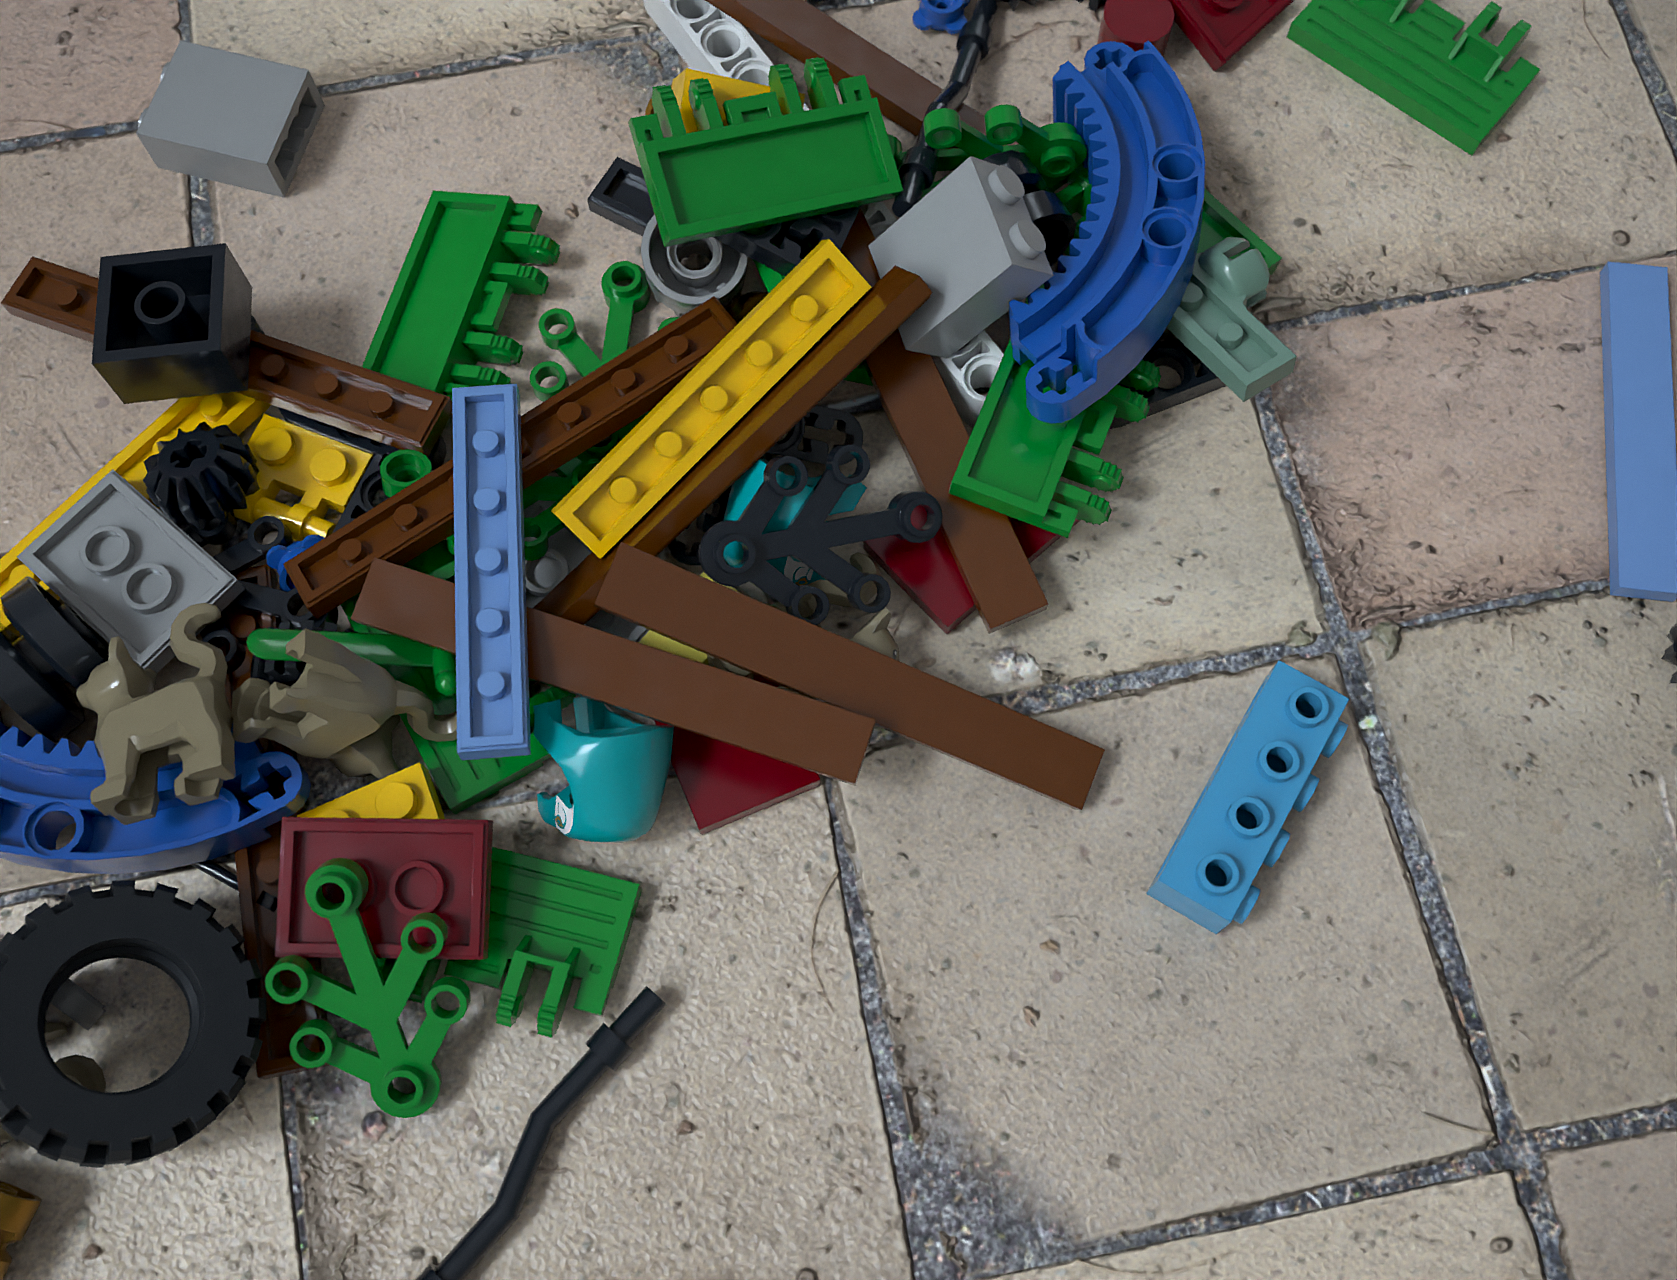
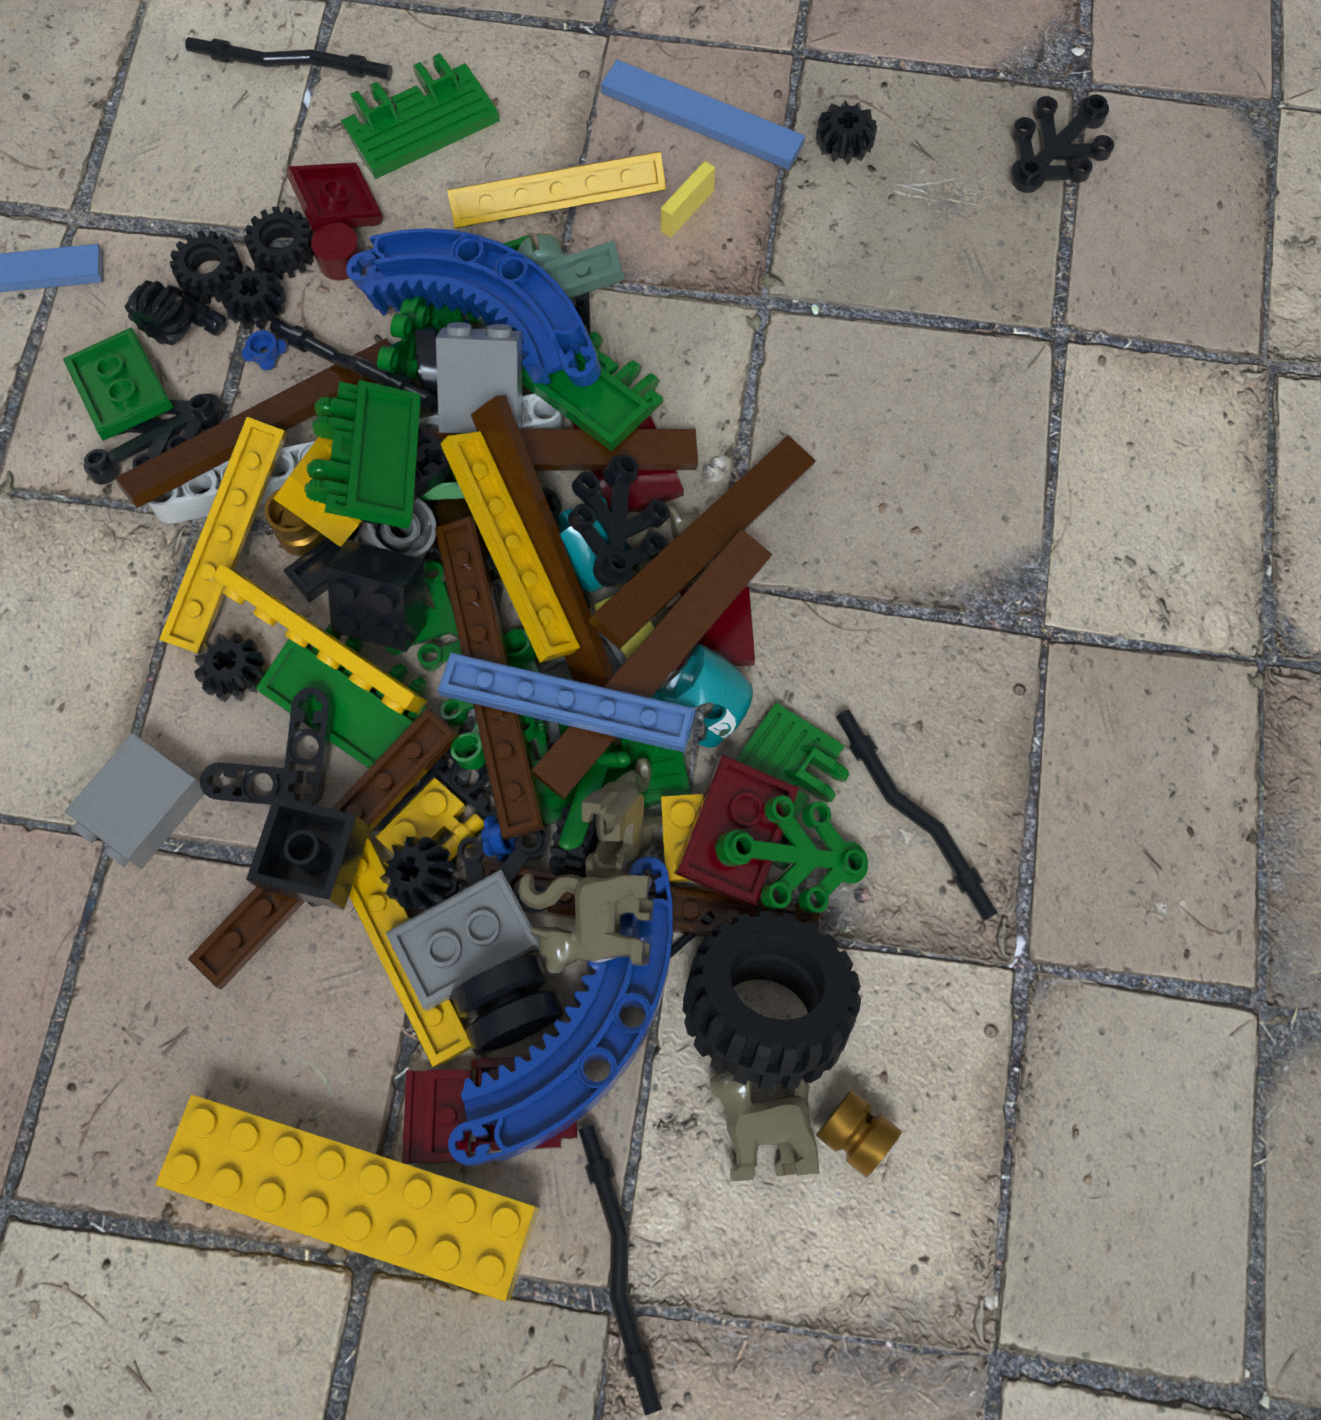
camera: 70 degrees left, 0 degrees up
(334, 277) = (283, 778): none -> black beam
(450, 147) = (235, 652): none -> black gear
(505, 229) = (332, 651): none -> yellow plate
(584, 265) = (377, 595): none -> black brick
(624, 58) = (223, 534): none -> yellow plate
(1249, 798) = (840, 376): dark azure brick -> none
(1387, 272) = (556, 189): none -> yellow plate
(1464, 456) = (687, 199): none -> light yellow tile

